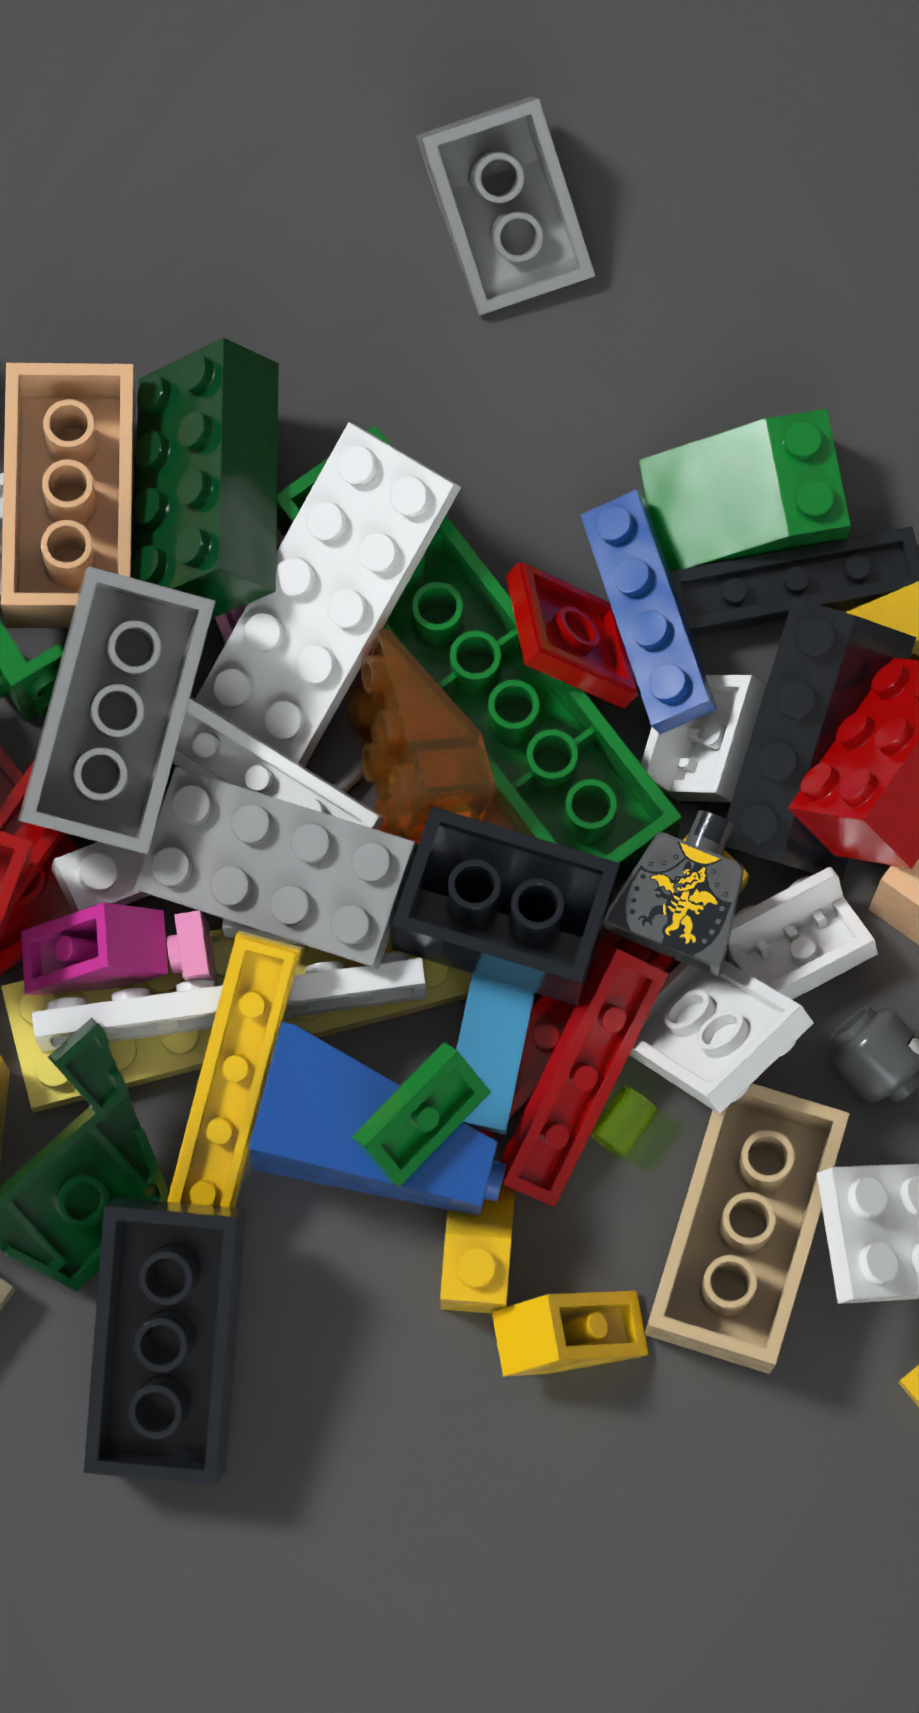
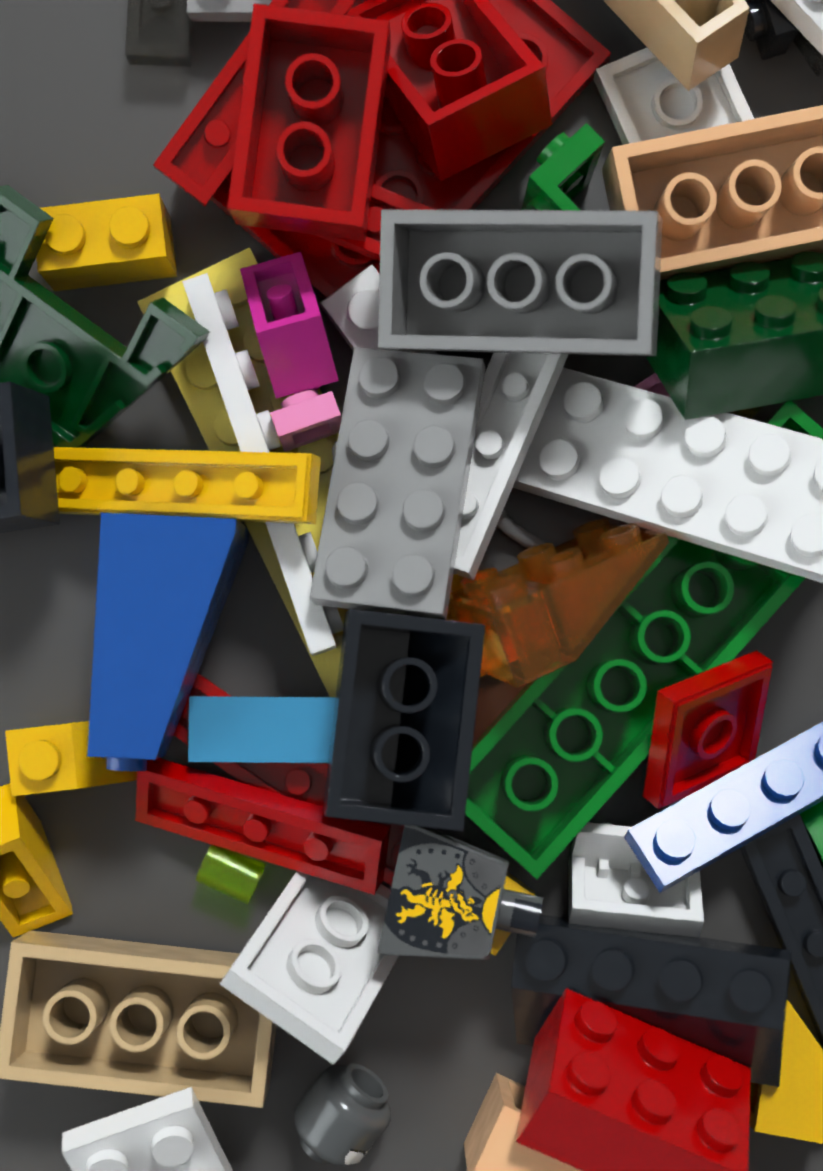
camera: 75 degrees right, 10 degrees up
(421, 1114) = (157, 678): green plate -> none
(800, 936) = (444, 1018): white bracket -> none

